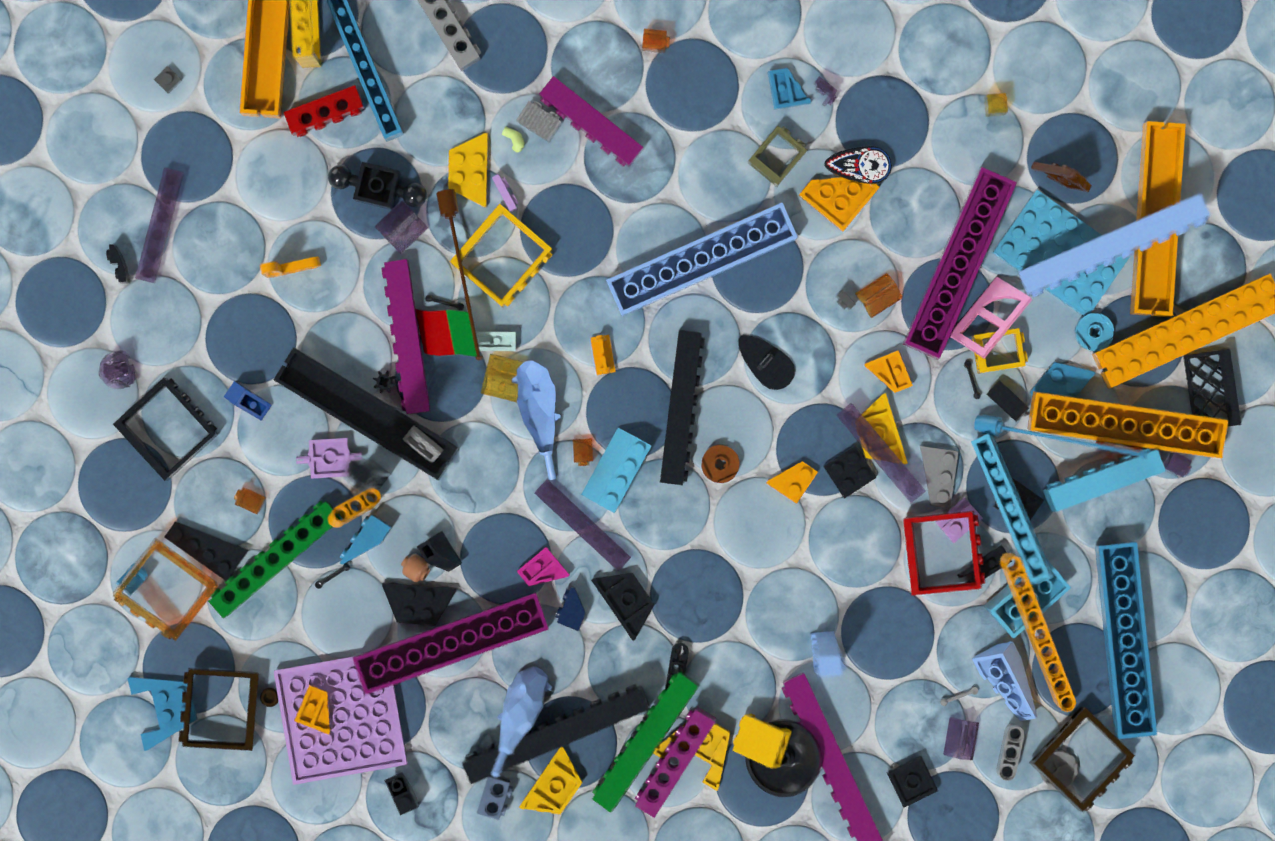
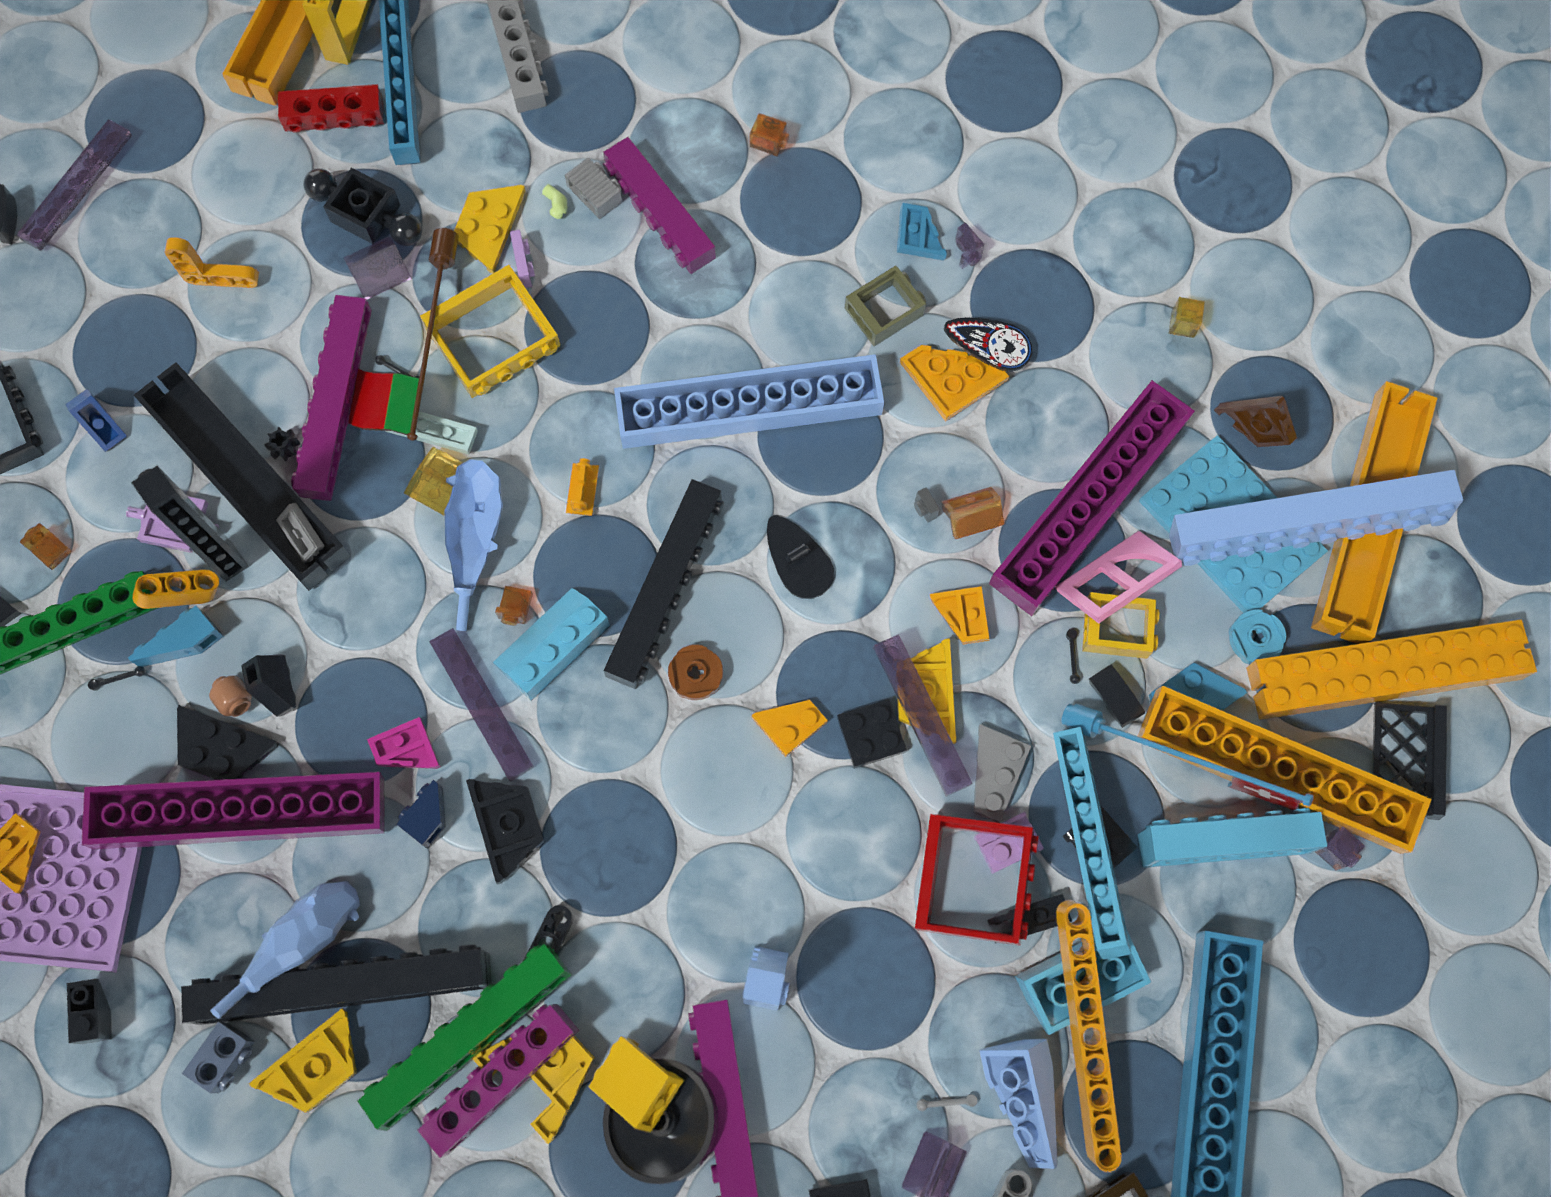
camera: 10 degrees right, 15 degrees down
(167, 79) = (157, 29): dark grey plate -> none

